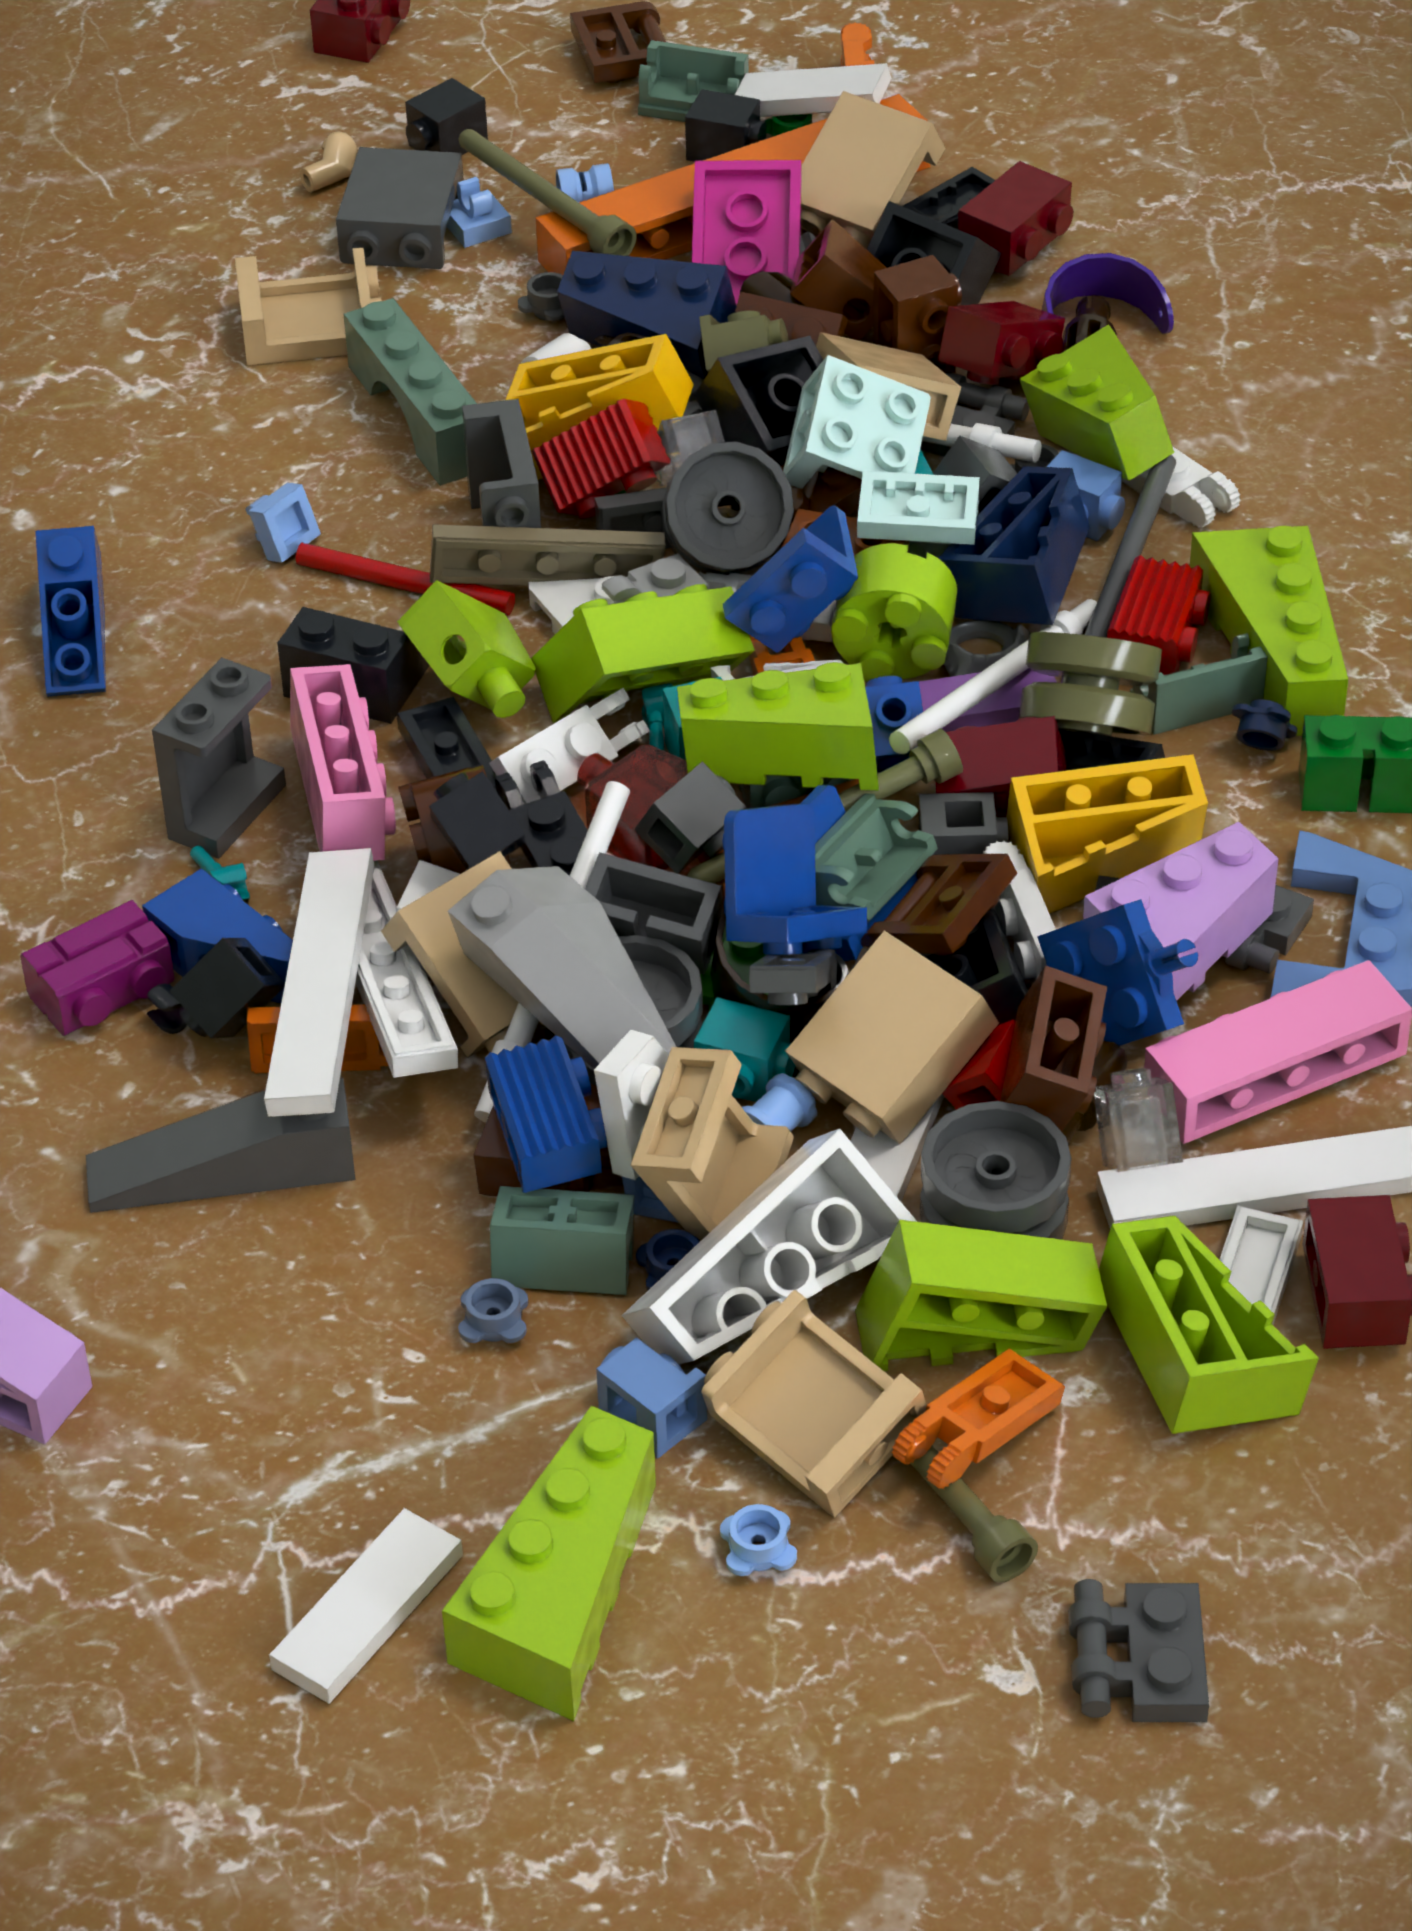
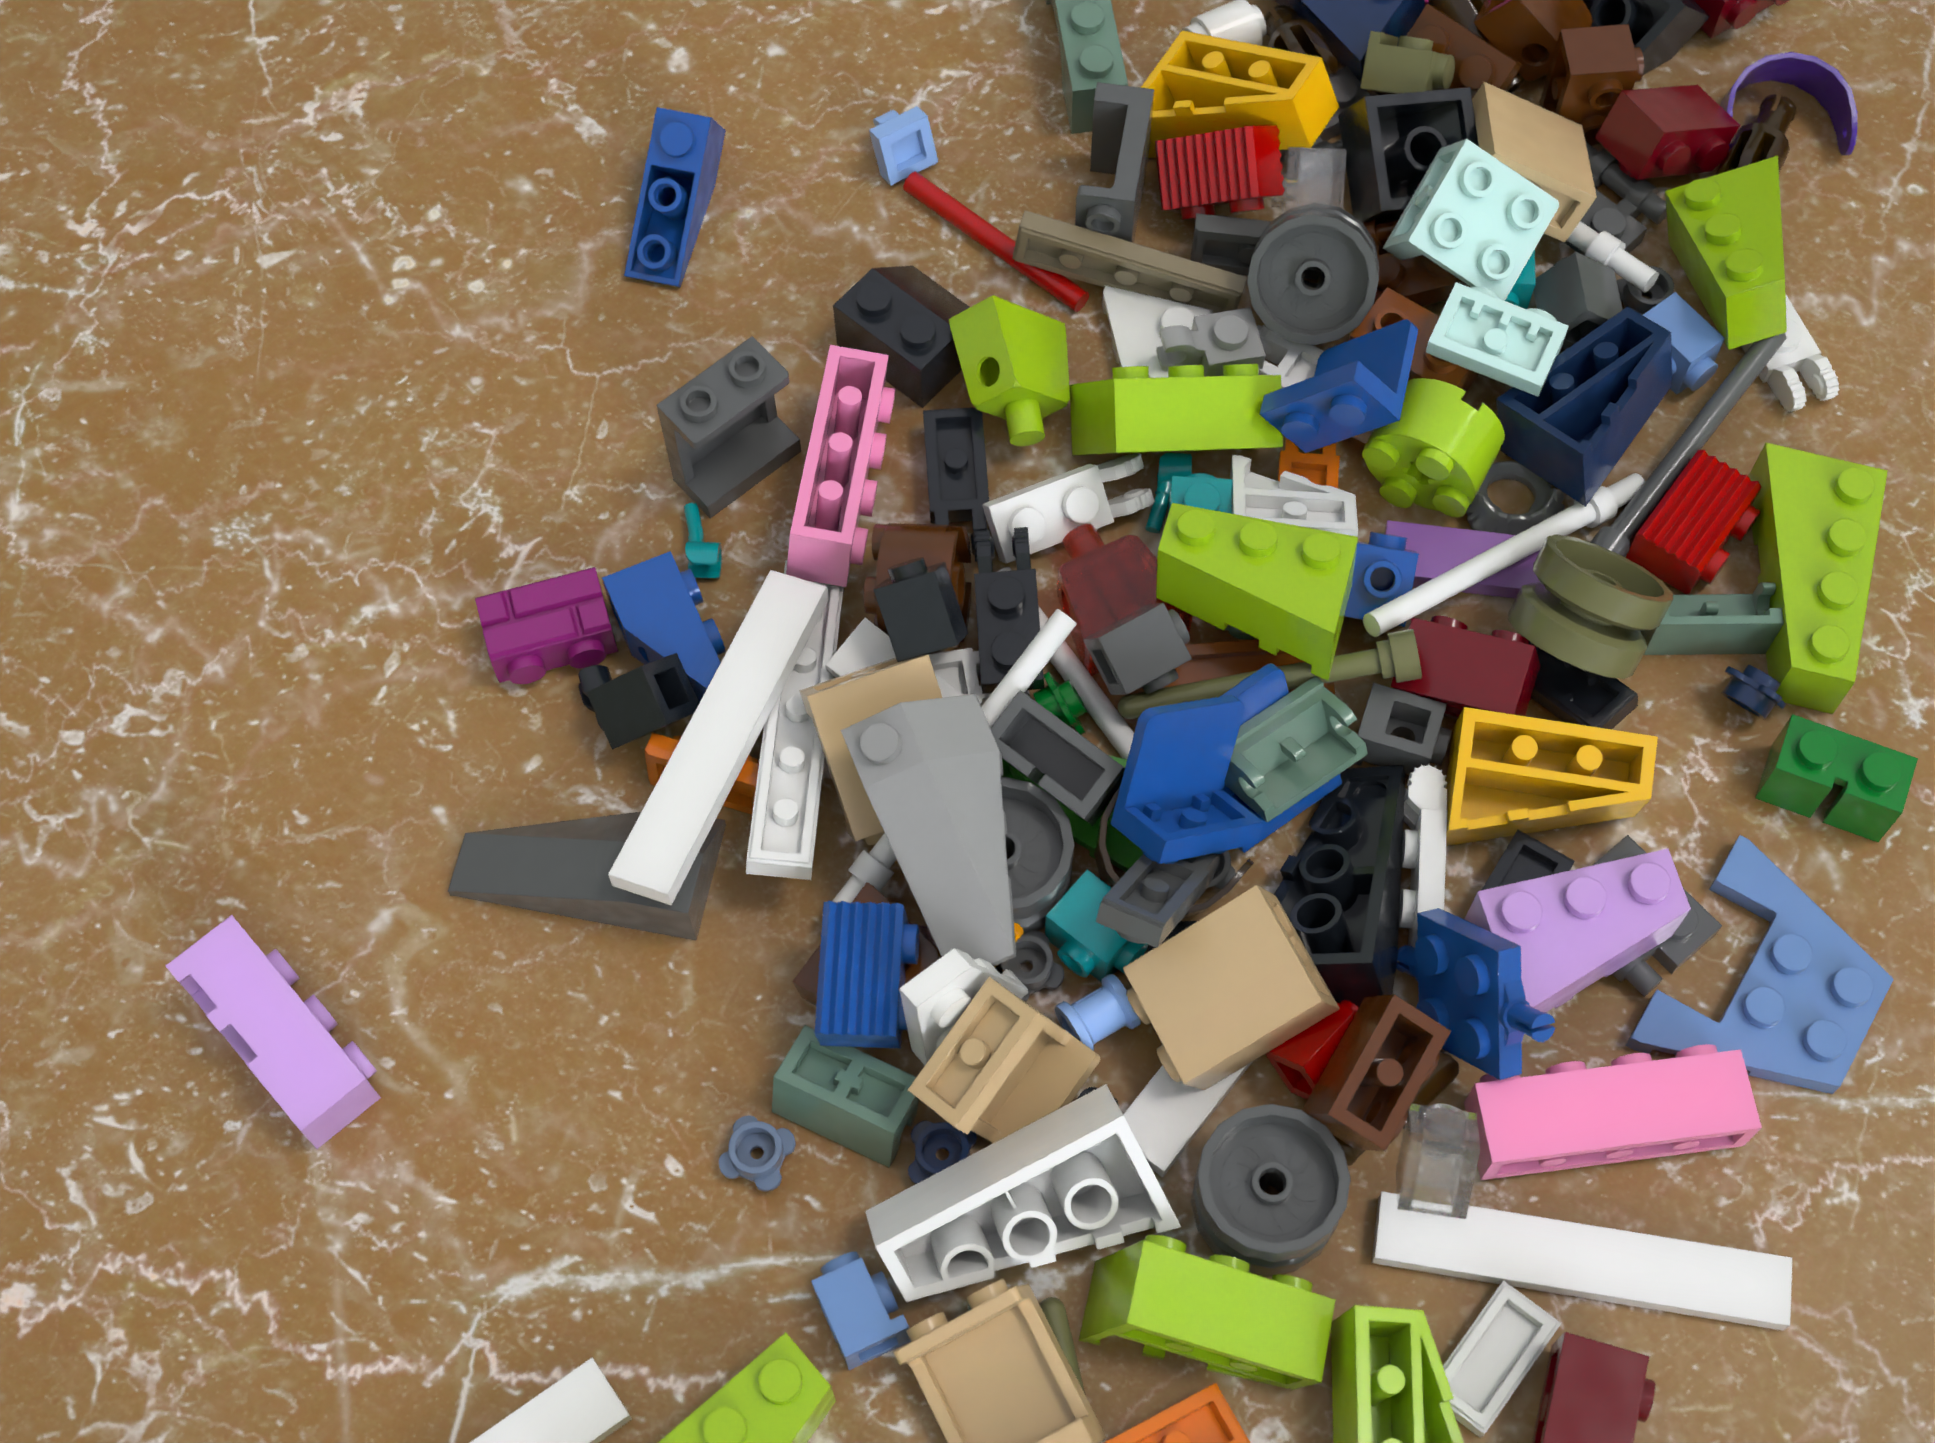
camera: 20 degrees right, 20 degrees up
(946, 902) = (1343, 833): reddish brown plate -> none

